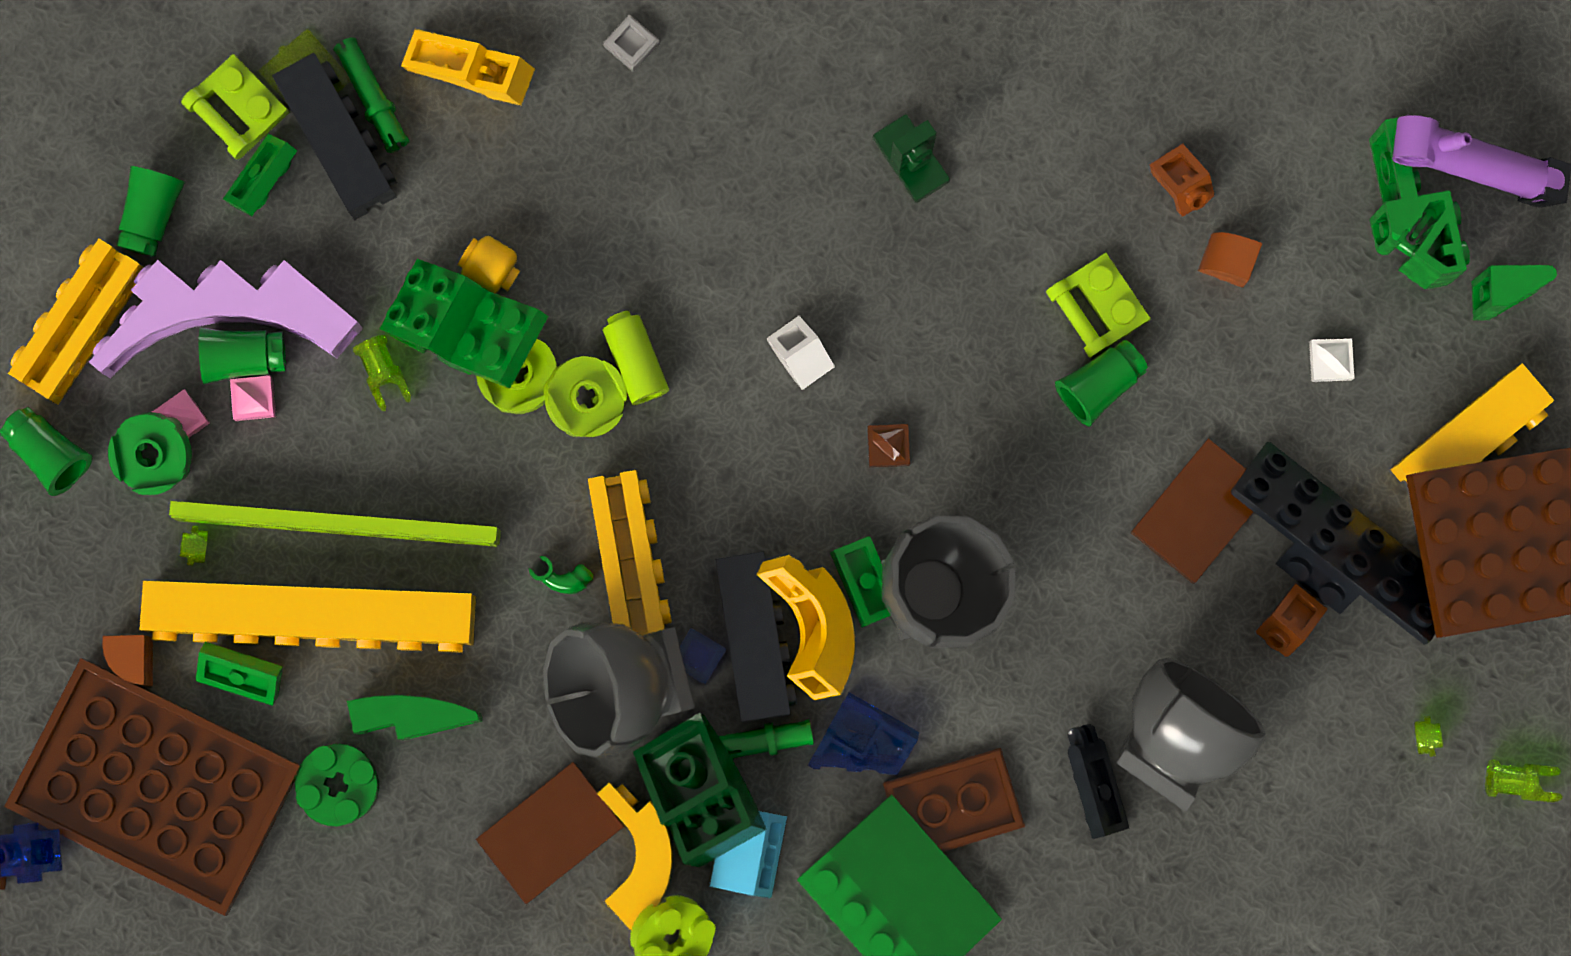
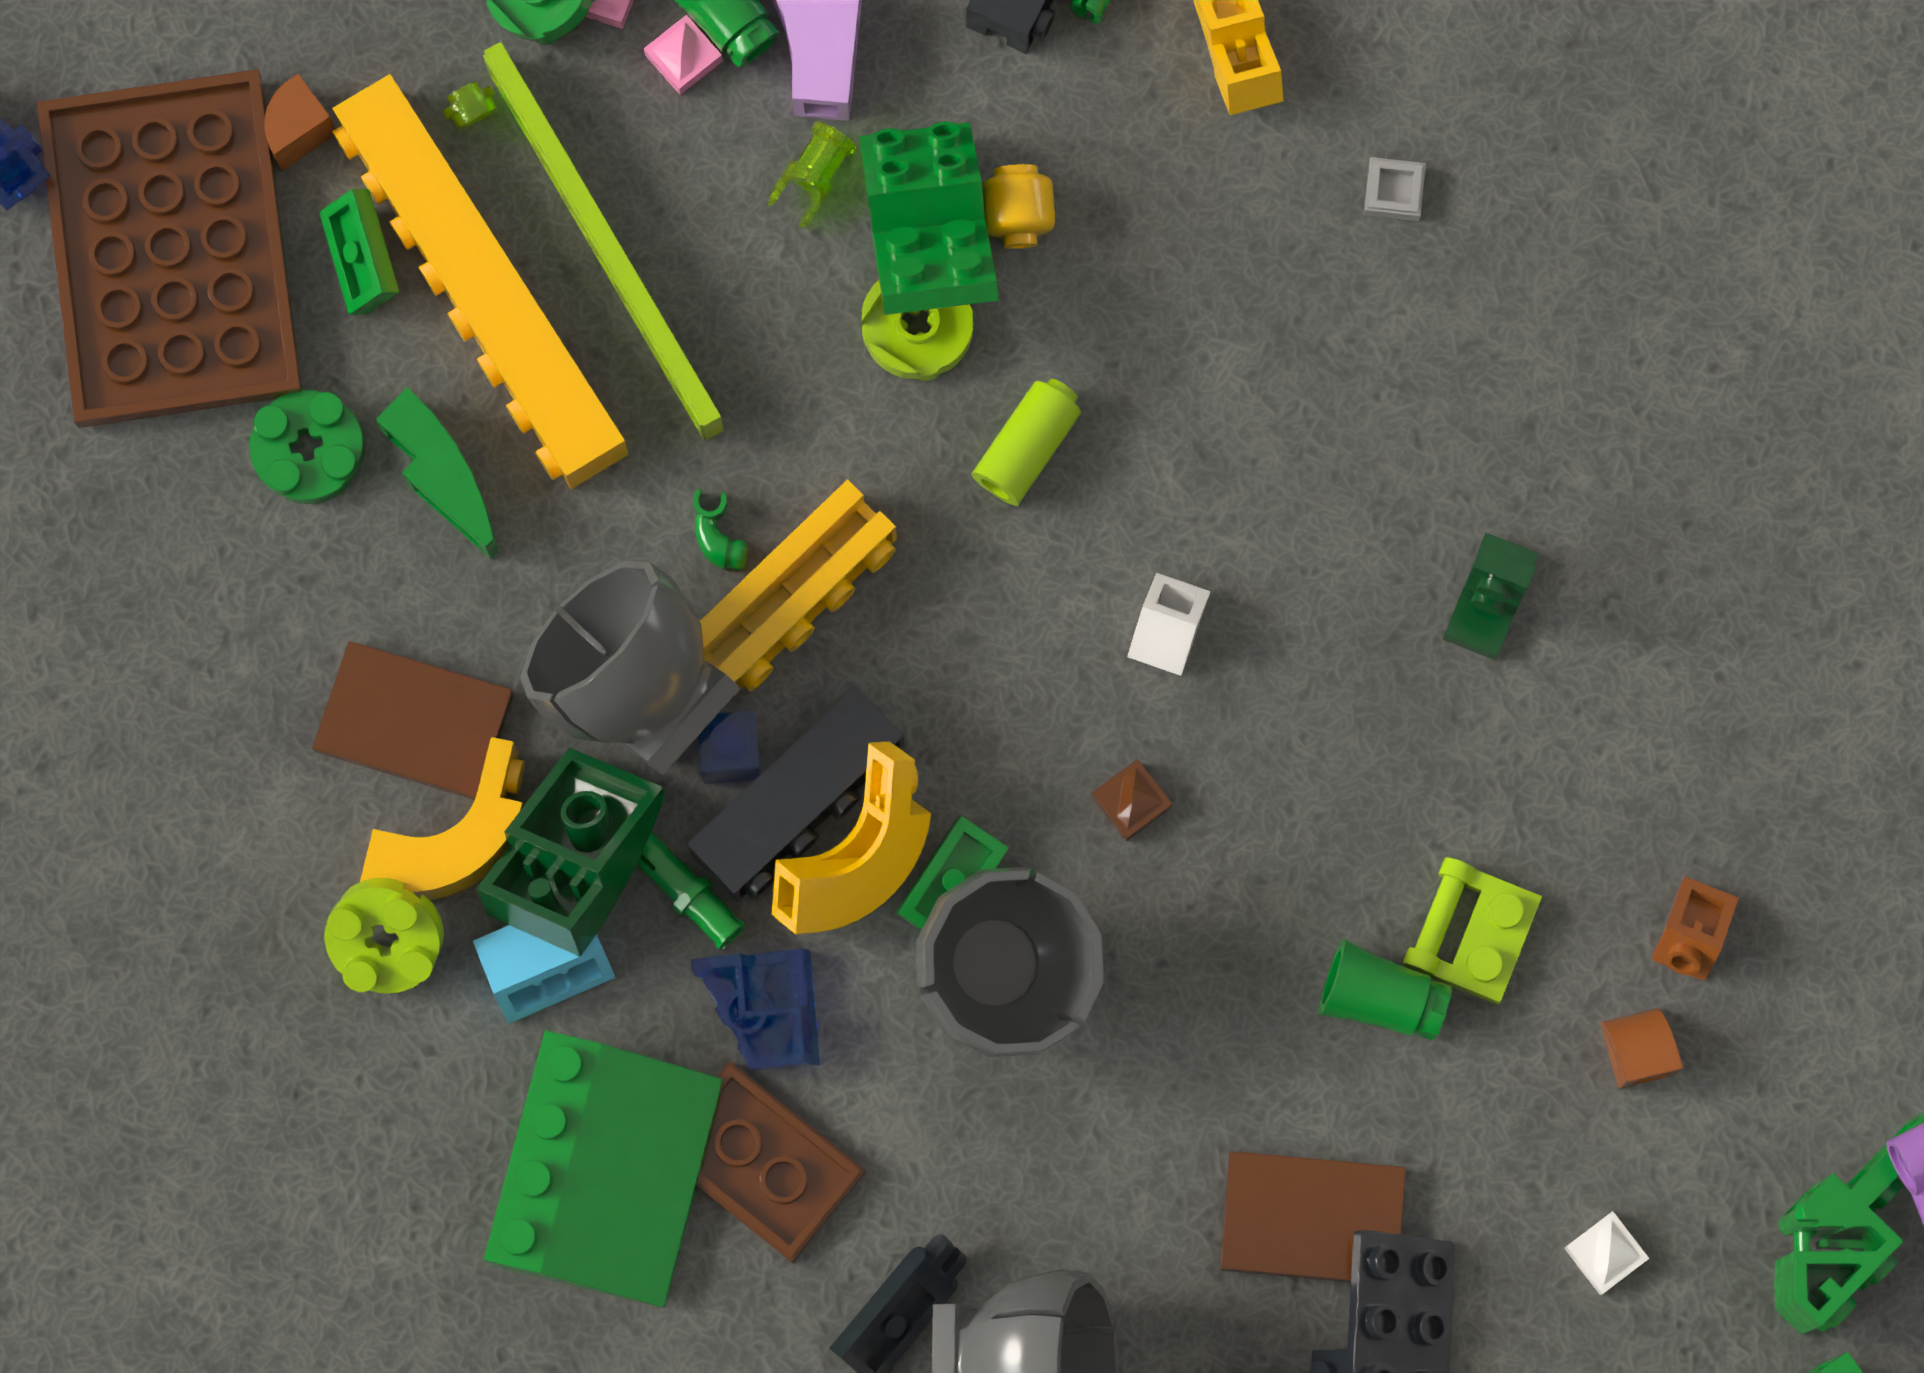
camera: 55 degrees right, 5 degrees down
(607, 403) = (954, 445): lime plate -> none

